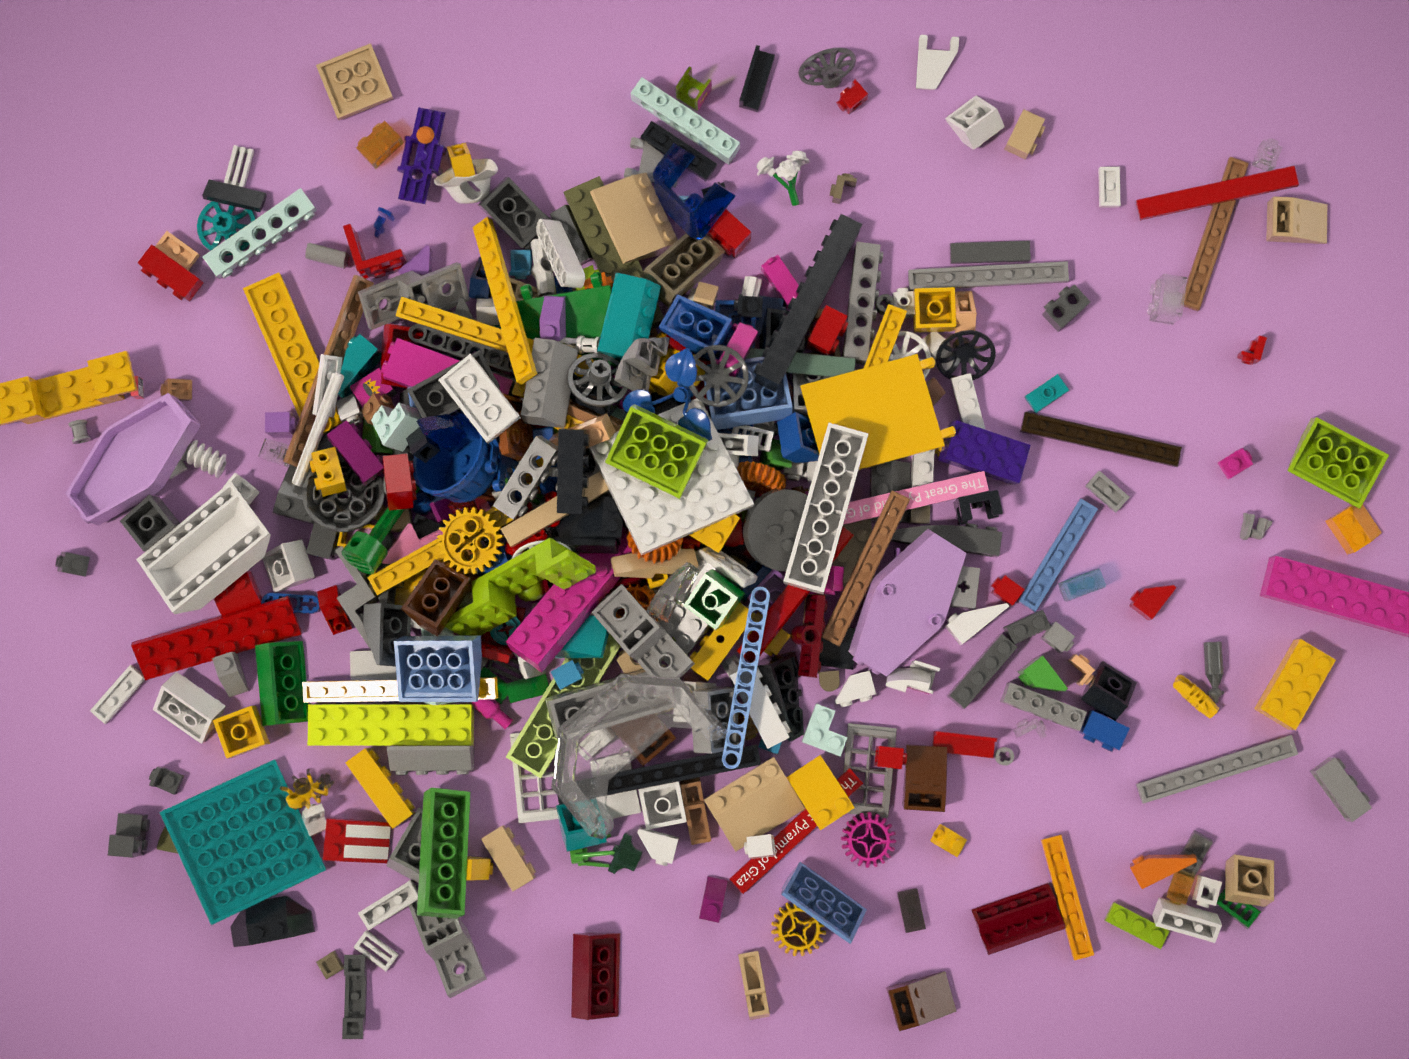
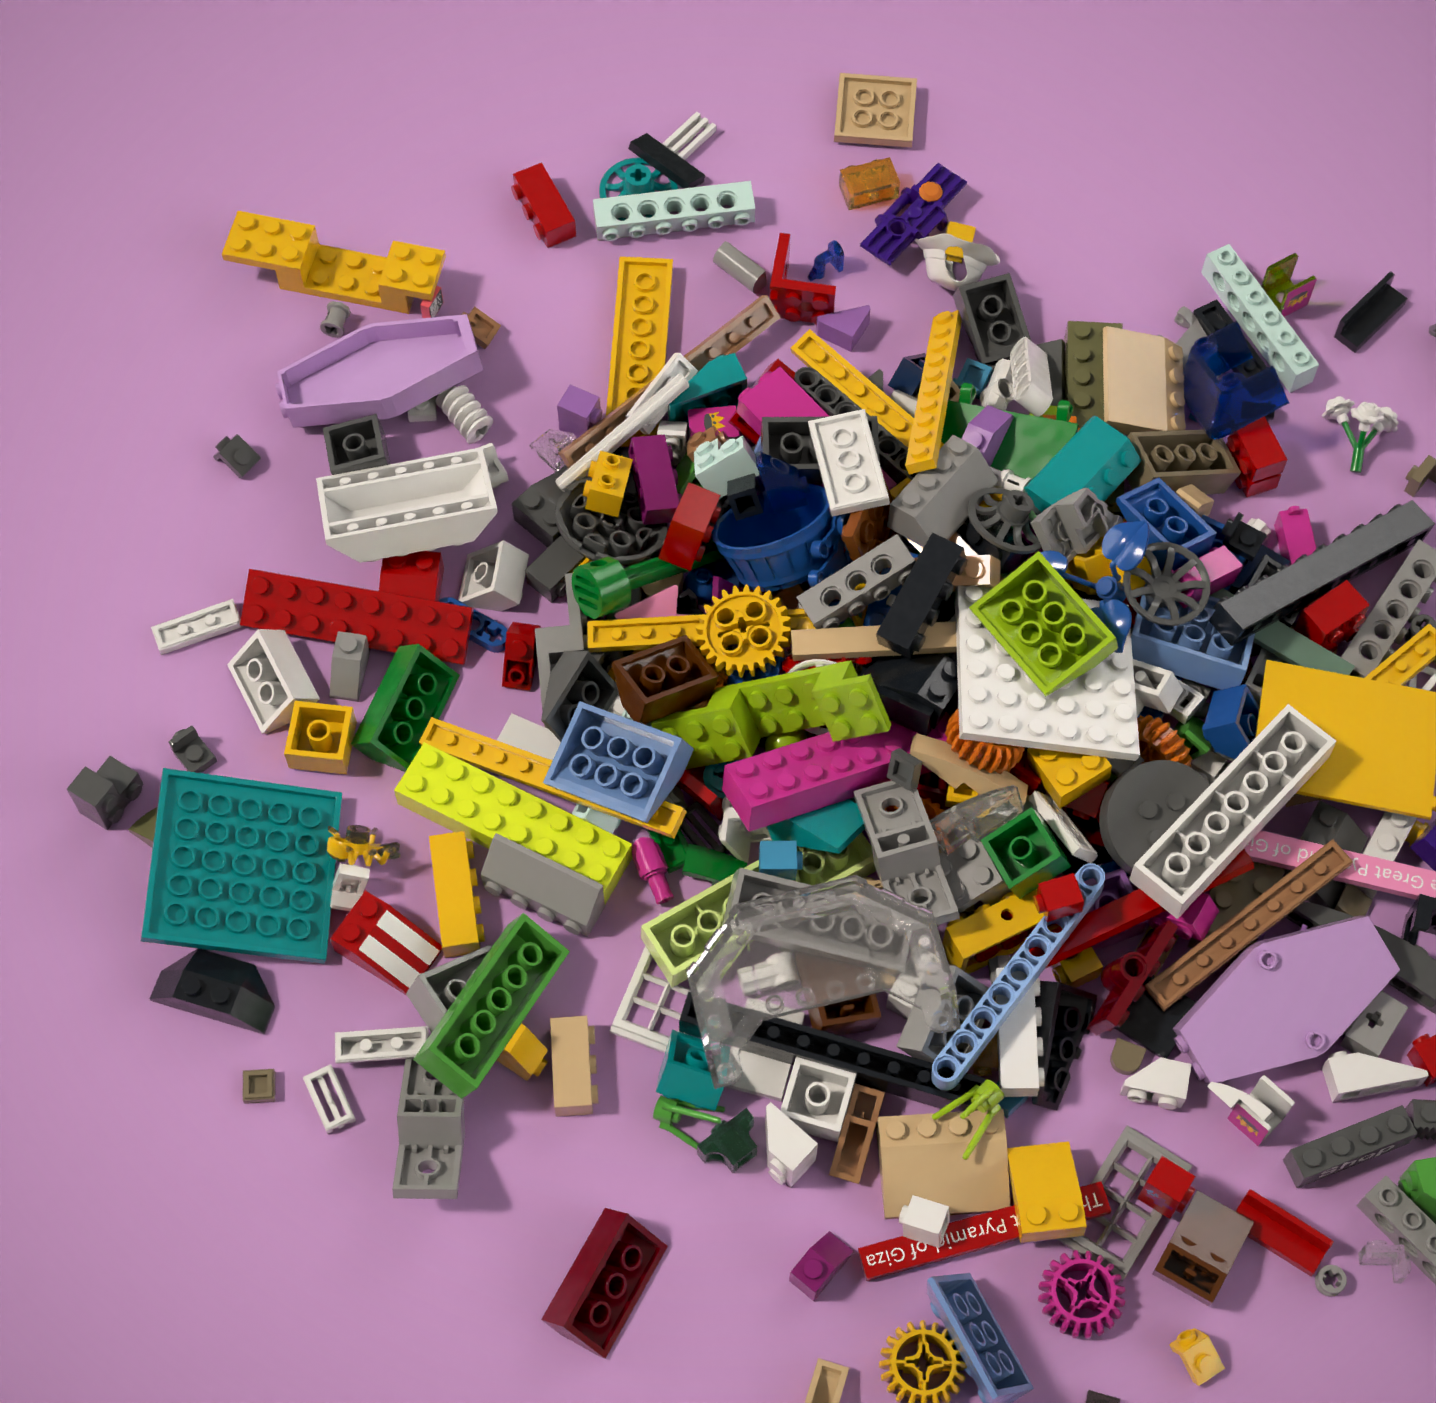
camera: 25 degrees right, 20 degrees down
(177, 250) = (568, 186): light nougat plate -> none
(355, 996) = (268, 1141): dark grey slope -> none
(411, 285) = (844, 339): light grey bracket -> none
(616, 586) = (904, 769): none -> dark grey plate
(748, 623) = (1059, 897): none -> red brick
(761, 759) = (984, 1099): none -> lime plant
(818, 733) = (1080, 1117): light aqua brick -> none

